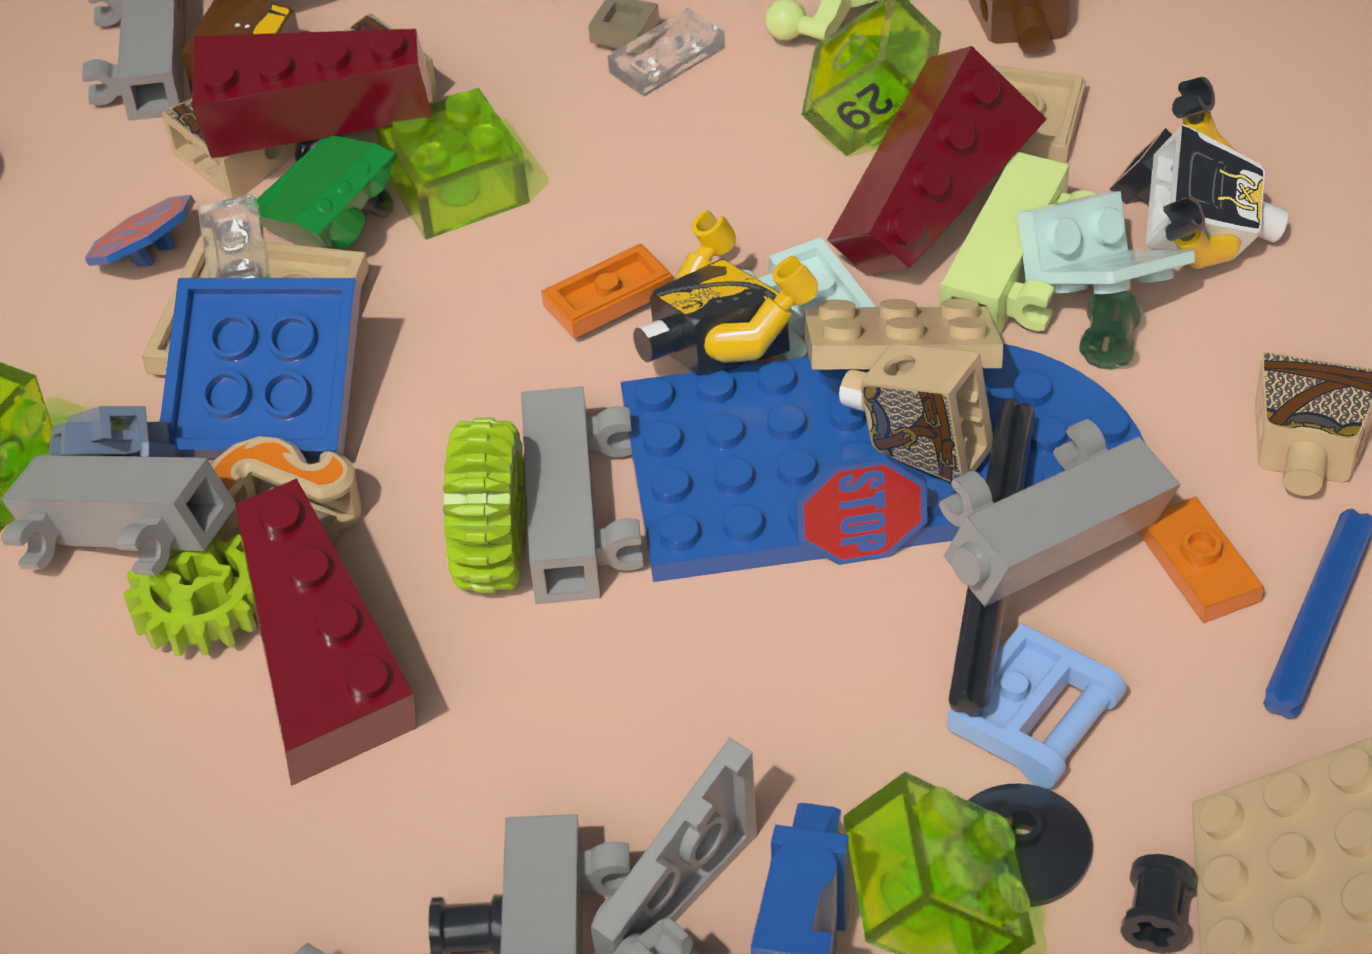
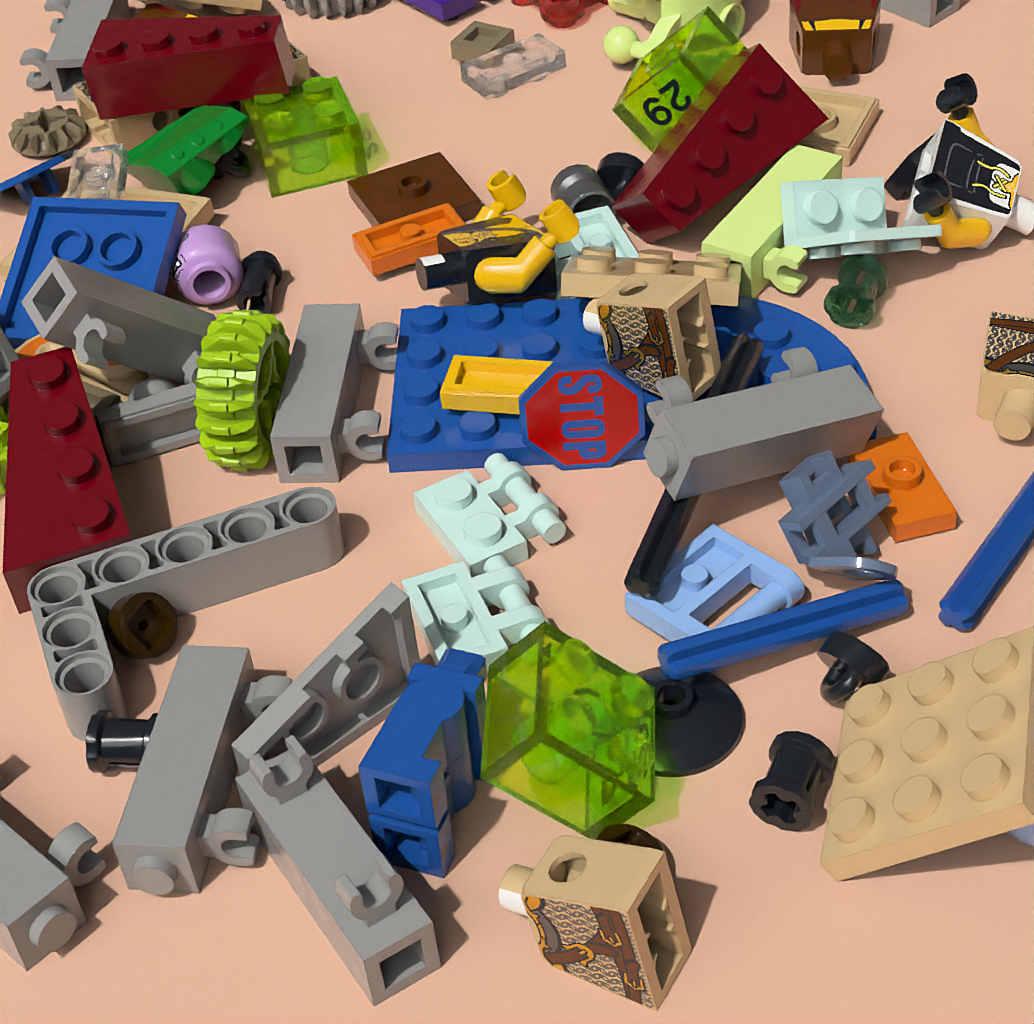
camera: 10 degrees right, 5 degrees down
(121, 181) = (47, 131): none -> dark tan gear
(347, 445) = (116, 321): none -> light grey brick
(390, 342) = (207, 265): none -> lavender head
(390, 538) = (150, 422): none -> light grey tile
(444, 793) = (142, 625): none -> dark brown tile
(447, 346) = (259, 278): none -> black pin
(447, 734) = (187, 566): none -> light grey beam
(591, 227) = (411, 189): none -> reddish brown plate
(759, 474) = (488, 383): none -> yellow tile
(763, 642) = (469, 516): none -> light aqua plate
(784, 759) = (454, 610): none -> light aqua plate
(786, 221) = (581, 189): none -> flat silver wheel
(822, 199) = (617, 171): none -> black tile
(1116, 738) = (781, 629): none -> blue axle
(1139, 616) = (823, 501): none -> sand blue piece
(1194, 767) = (850, 665): none -> black tile

